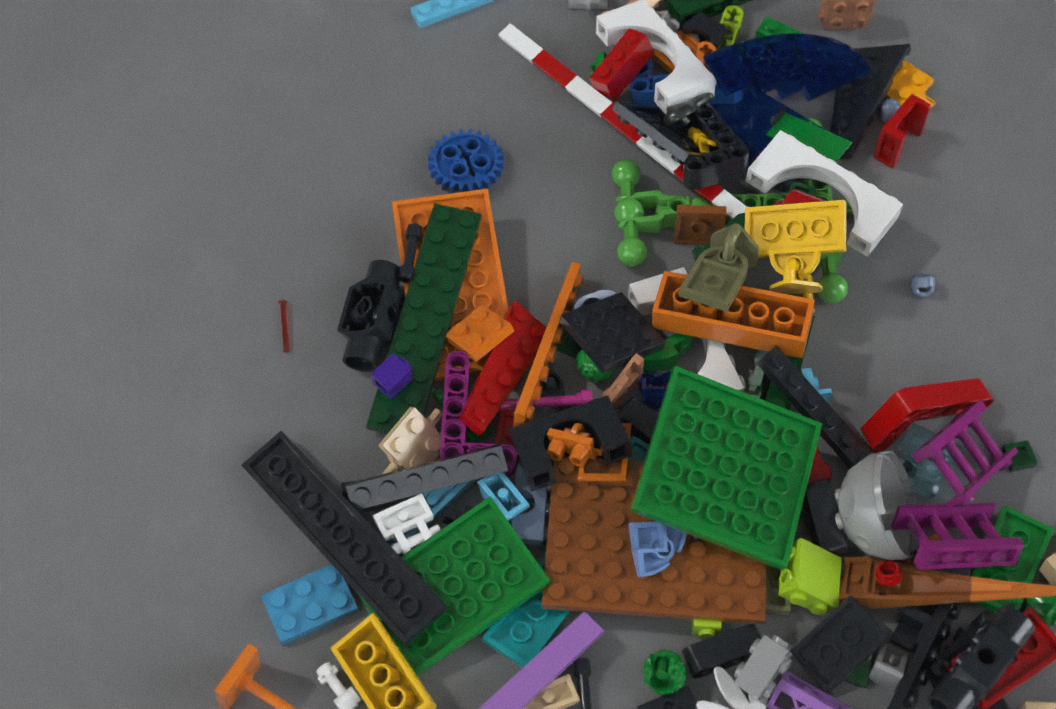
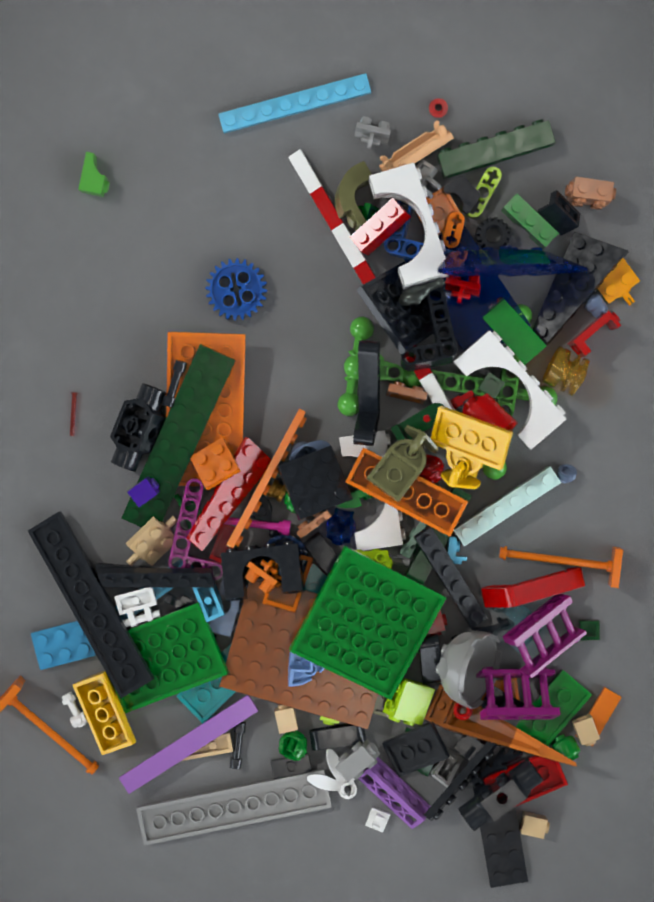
camera: 10 degrees right, 30 degrees up
(276, 85) = (91, 180): none -> bright green arch
(565, 361) = (277, 491): none -> pearl gold wheel
(577, 46) = (345, 202): none -> olive arch
(644, 638) = (286, 719): none -> tan brick
(652, 214) = (369, 393): none -> black beam
(700, 139) = (425, 320): yellow piece -> none
(735, 107) = (463, 289): none -> red hips
(817, 25) = (560, 214): none -> black panel
(861, 326) = (506, 505): none -> light aqua brick
(883, 170) = (567, 371): none -> clear yellow wheel
(1022, 365) = (612, 566): none -> orange tile

